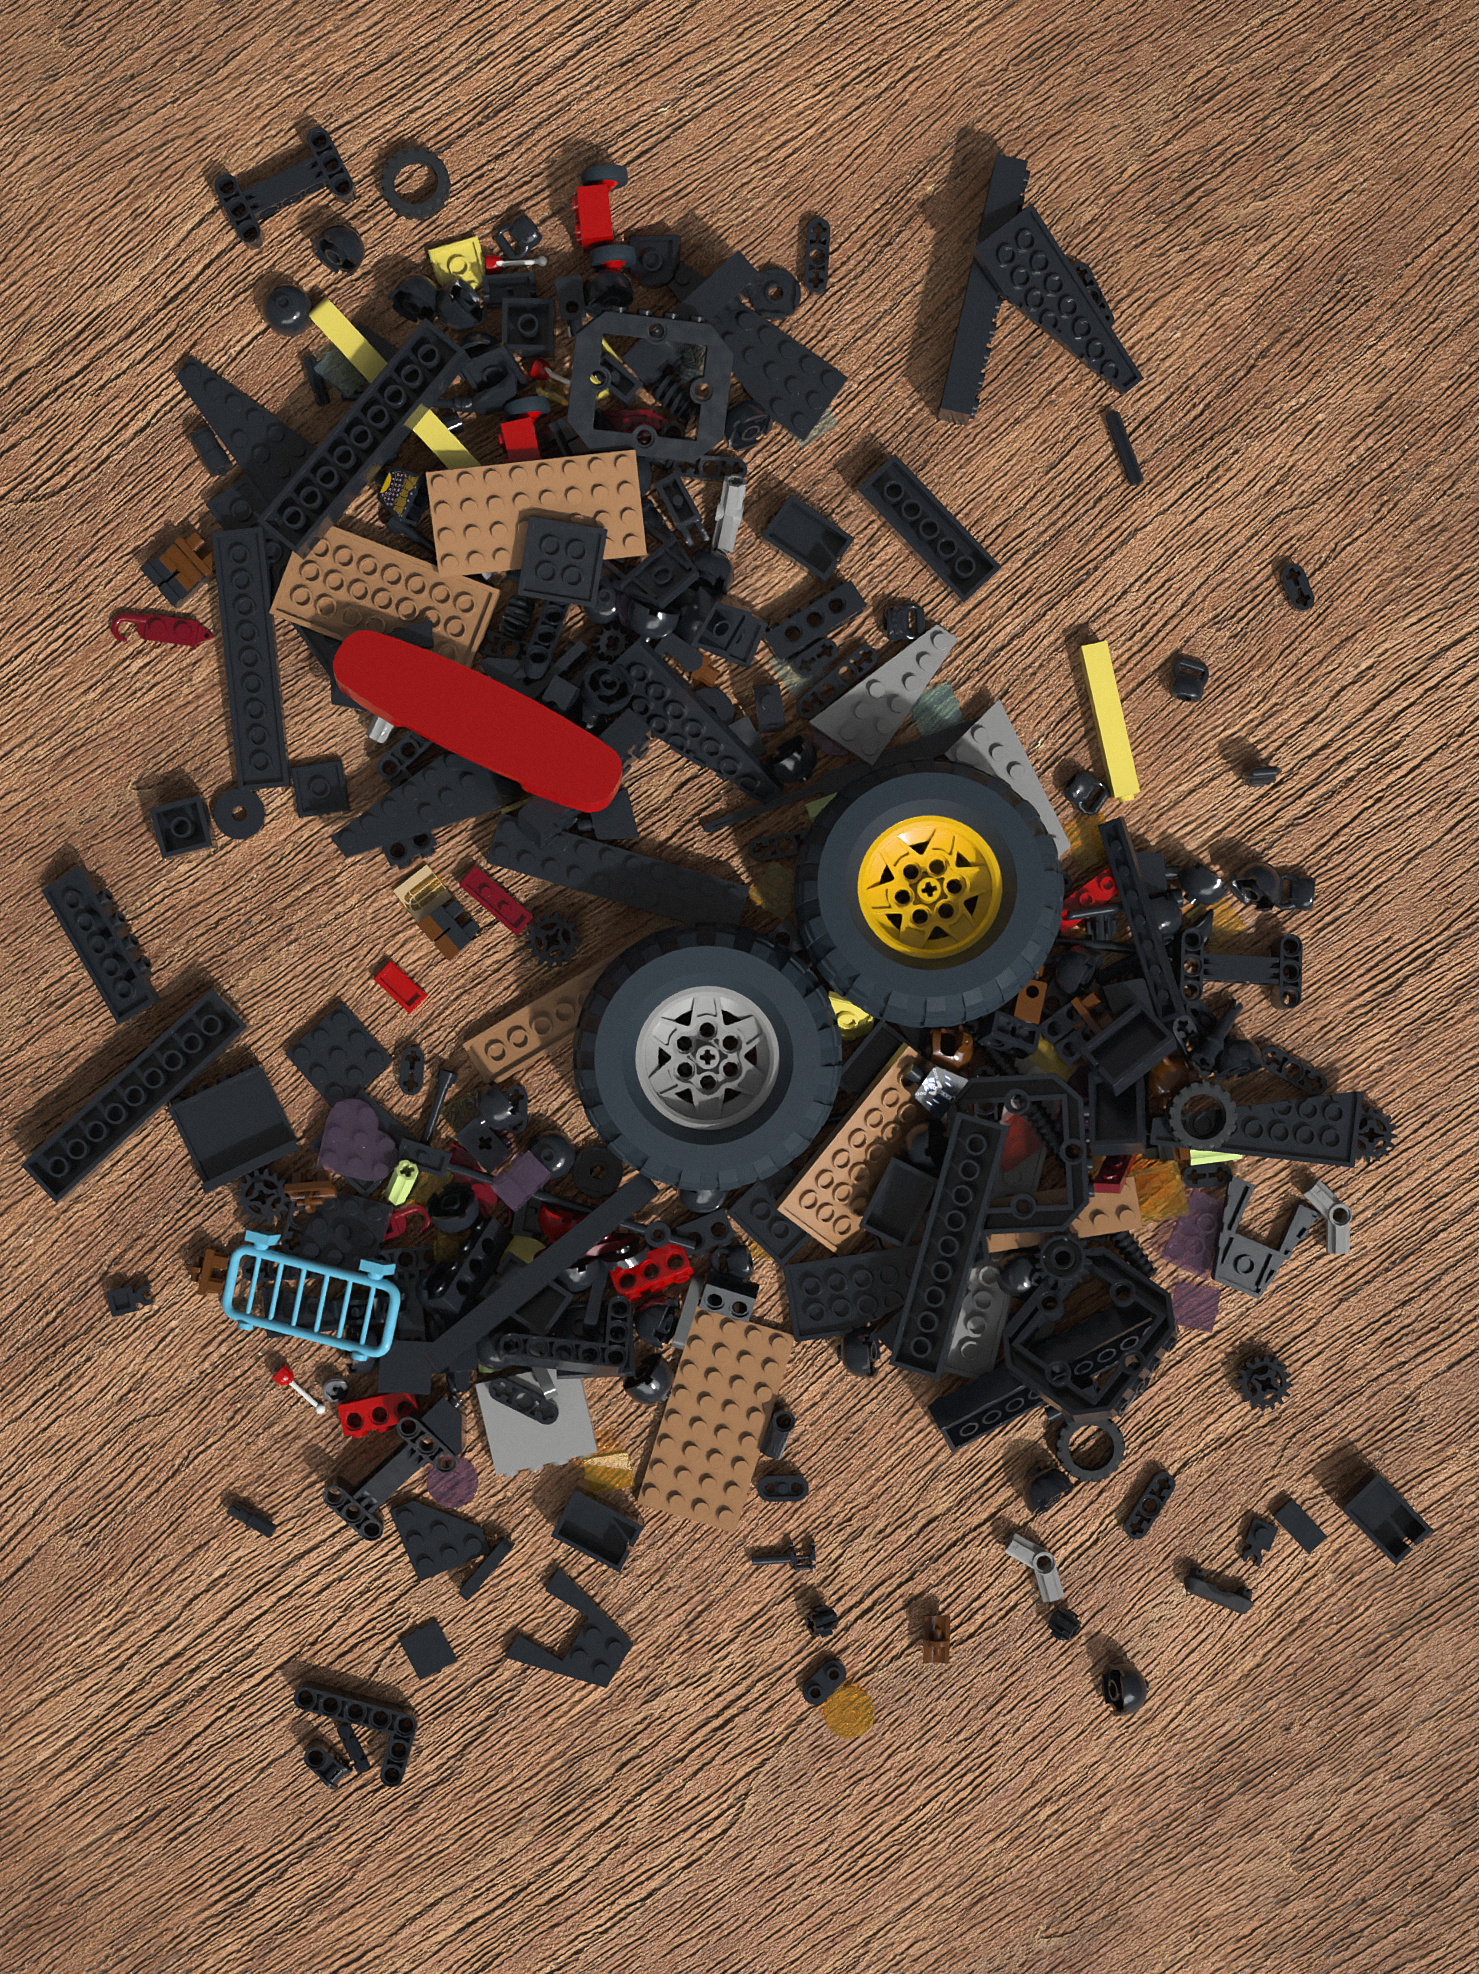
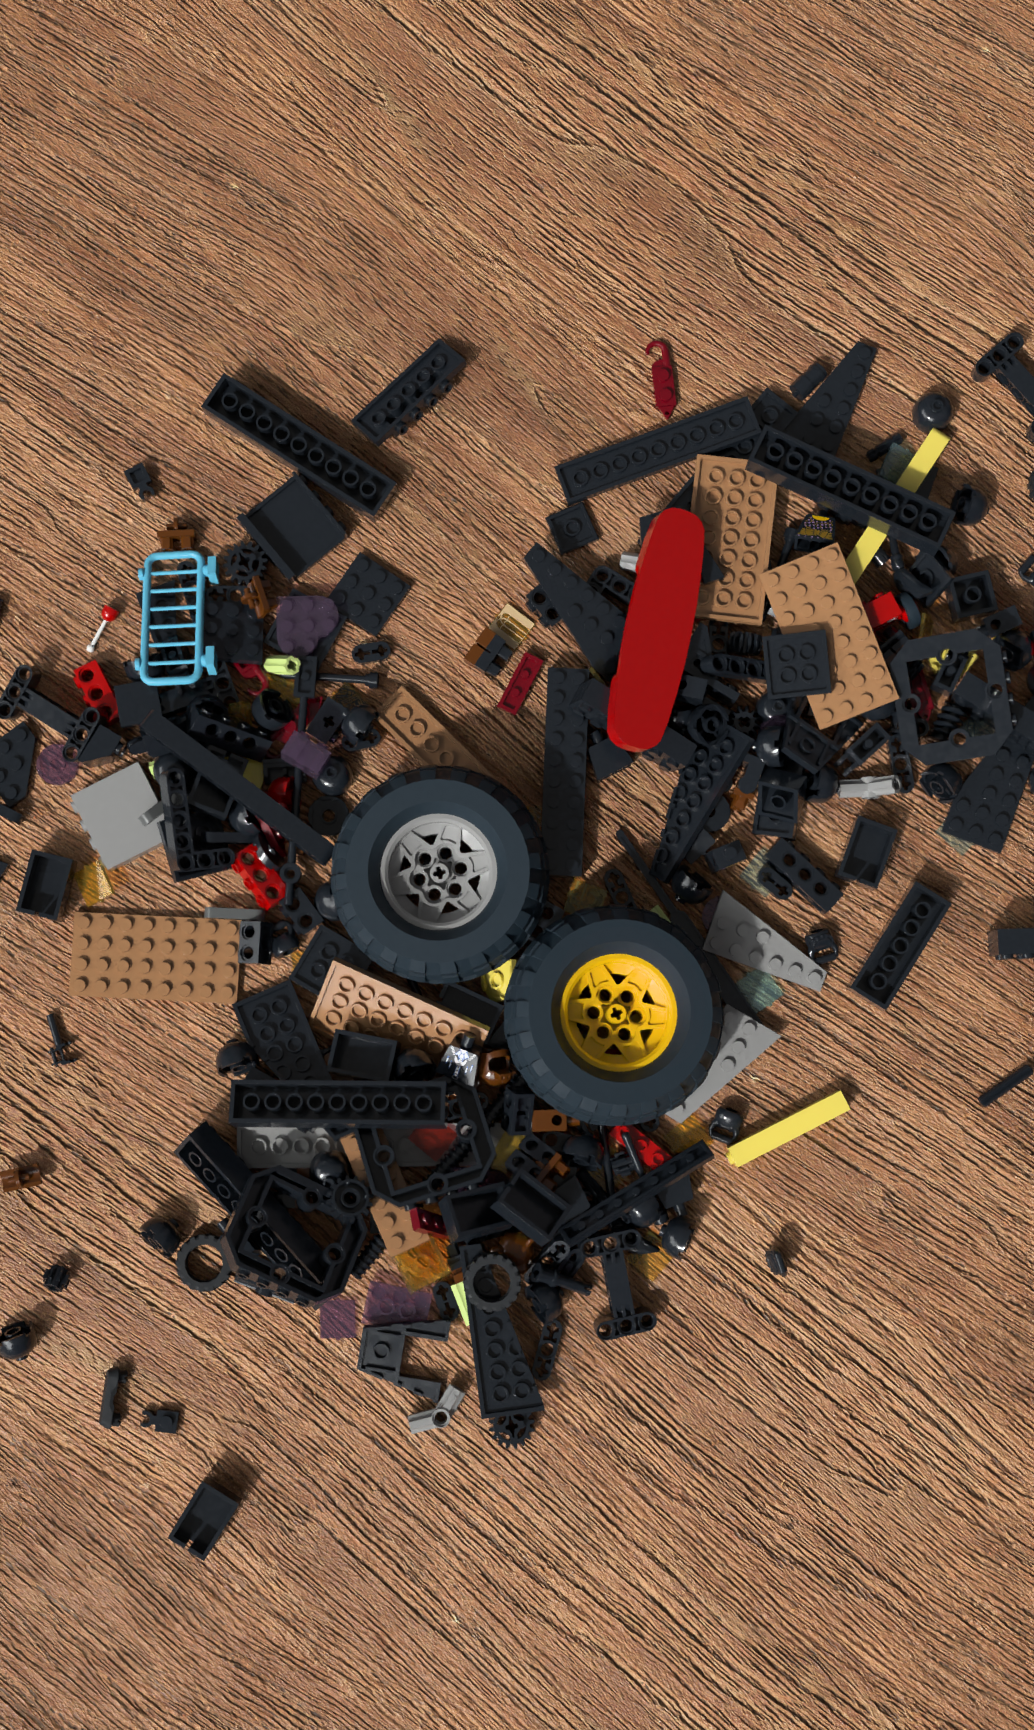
camera: 65 degrees right, 5 degrees down
(181, 570) = (712, 381): hips -> none
(183, 827) = (514, 431): black brick -> none
(225, 810) = (532, 461): black tile -> none
(334, 1388) = (108, 655): black tile -> none
(340, 248) = (990, 439): black cylinder -> none
(400, 986) = (434, 627): red tile -> none
(459, 261) = (1002, 533): light yellow tile -> none
(459, 306) = (972, 539): black cylinder -> none
(495, 264) = (1011, 559): hinge -> none
(508, 286) = (998, 573): black hinge -> none
(525, 1411) = (131, 785): black beam -> none
(542, 371) = (940, 616): red hinge -> none
(544, 955) = (510, 737): black gear -> none
(651, 1381) = (172, 898): black cylinder -> none
(656, 1320) = (222, 890): black cylinder -> none
(777, 1433) = (155, 1009): black piece -> none
(783, 1489) = (115, 1024): black plate -> none
(821, 1620) = (14, 1081): black gear -> none
(838, 684) = (758, 908): black beam -> none
(1047, 1575) = (108, 1234): light grey piece -> none
(1164, 1492) = (182, 1332): black beam -> none
(1186, 686) = (831, 1184): black piece -> none
(1257, 884) = (688, 1281): black cylinder -> none
(1260, 1391) = (299, 1392): black gear -> none
(1291, 591) = (930, 1248): black beam -> none
(1299, 1525) = (181, 1451): black tile -> none
(1300, 892) = (690, 1319): black piece -> none

